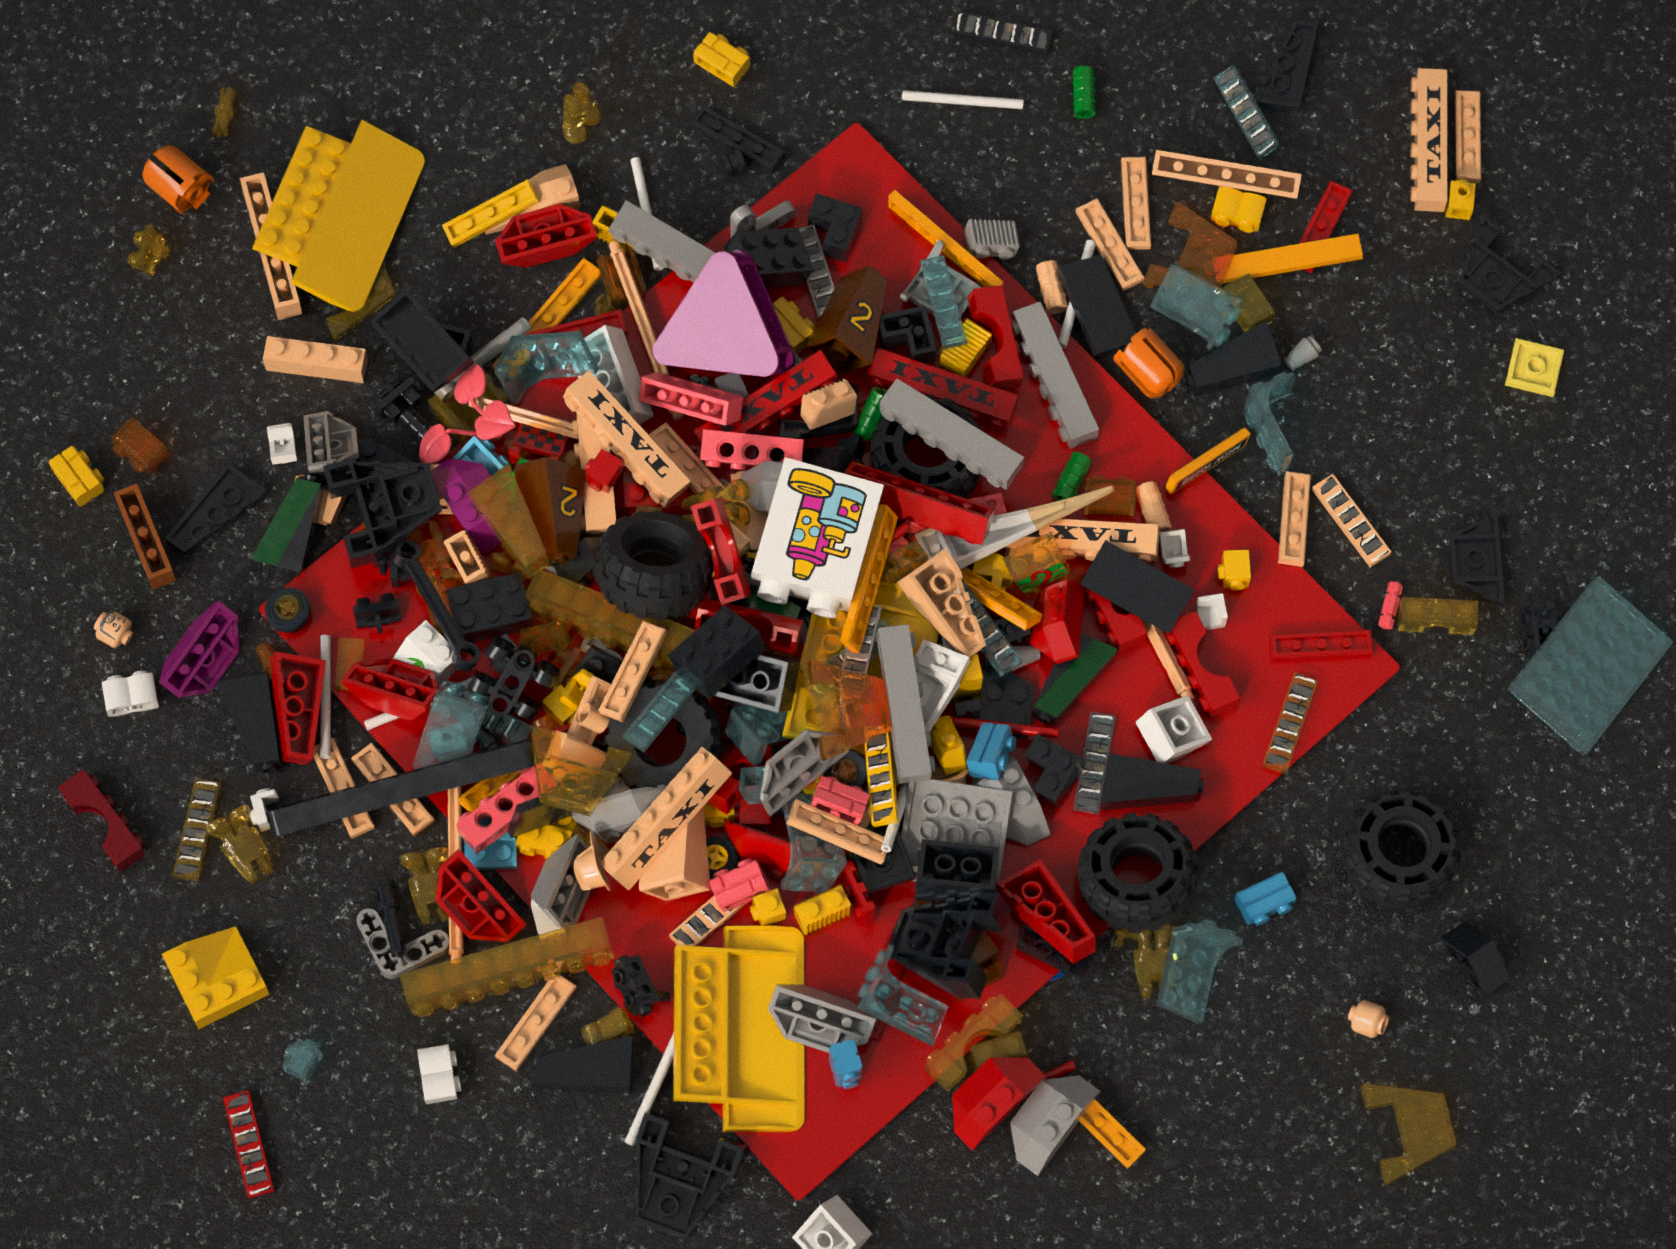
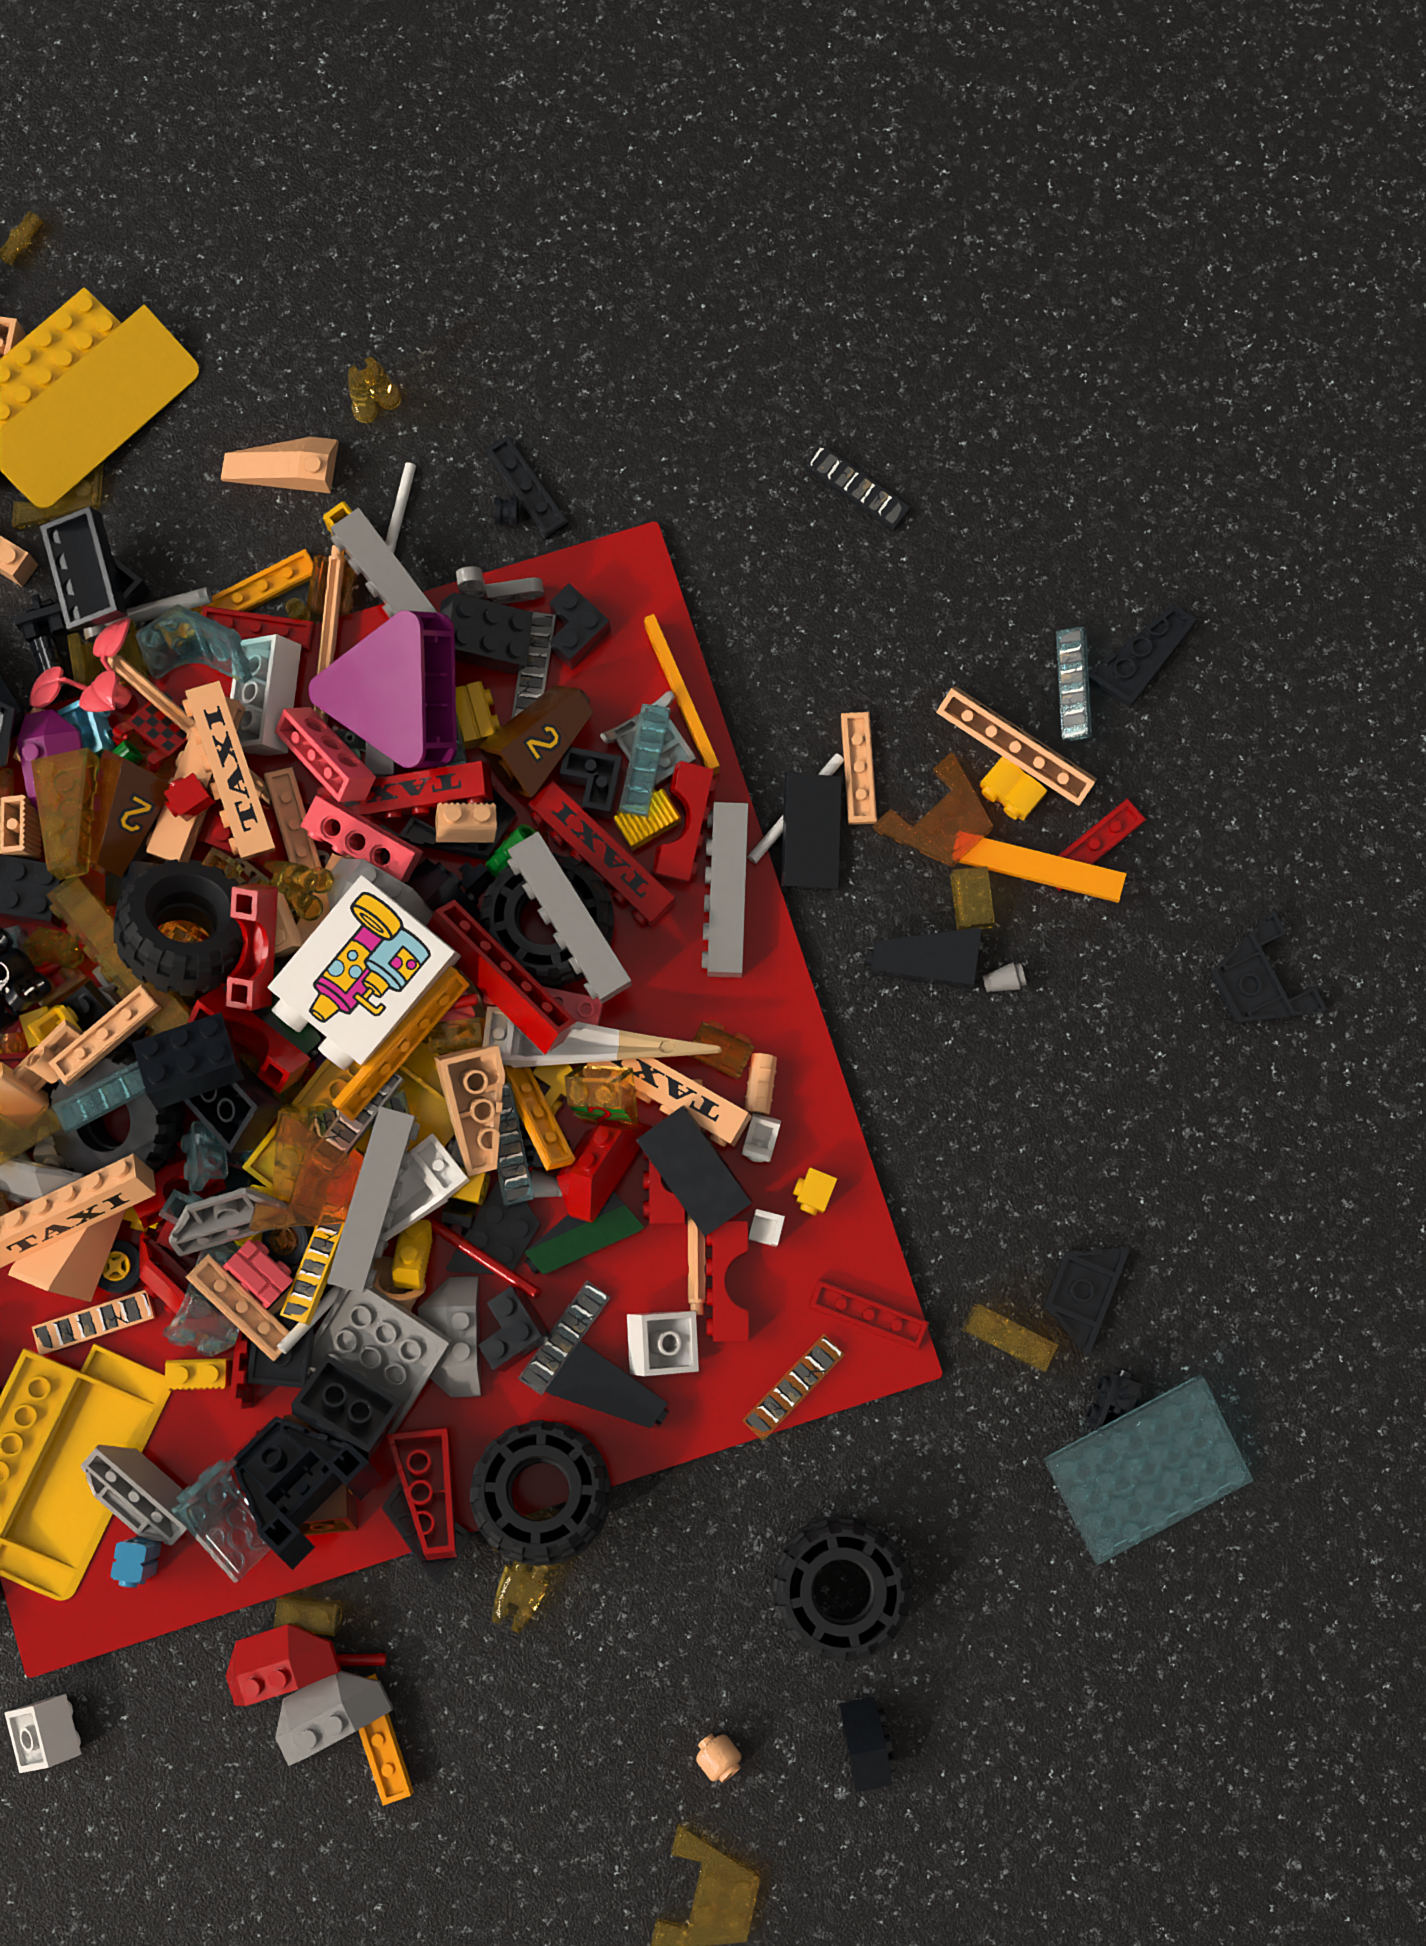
camera: 25 degrees right, 10 degrees up
(490, 213) = (231, 460): yellow tile -> none
(544, 236) = (269, 508): red wedge -> none
(722, 59) = (549, 393): yellow brick -> none
(739, 885) = (121, 1311): coral brick -> none
(768, 908) = (143, 1347): yellow brick -> none
(962, 99) = (780, 543): white piece -> none
(991, 238) = (733, 710): light grey brick -> none
(991, 751) = (452, 1284): dark azure brick -> none
(995, 1020) = (249, 1606): clear yellow arch -> none
(1051, 287) = (772, 790): light nougat axle -> none
(1071, 477) = (690, 1012): green axle -> none
(1084, 92) = (910, 589): green axle -> none
(1135, 203) = (908, 734): light nougat tile -> none
(1150, 364) = (834, 922): orange cylinder -> none
(1191, 966) = (552, 1619): clear light blue bracket -> none
(1197, 305) = (916, 878): clear light blue bracket -> none
(1207, 460) = (844, 1055): light orange tile -> none
(1261, 418) = (922, 1027): clear light blue bracket -> none
(1265, 899) = (673, 1572): dark azure brick -> none
(1294, 519) = (907, 1159): light nougat tile -> none
(1351, 520) = (969, 1187): tile -> none
(1390, 605) = (965, 1300): coral axle -> none
(1430, 140) = (1256, 799): light nougat brick -> none
(1460, 199) = (1257, 880): yellow brick -> none
(1467, 136) = (1299, 812): light nougat tile -> none
(1534, 367) = (1249, 1102): light yellow tile -> none

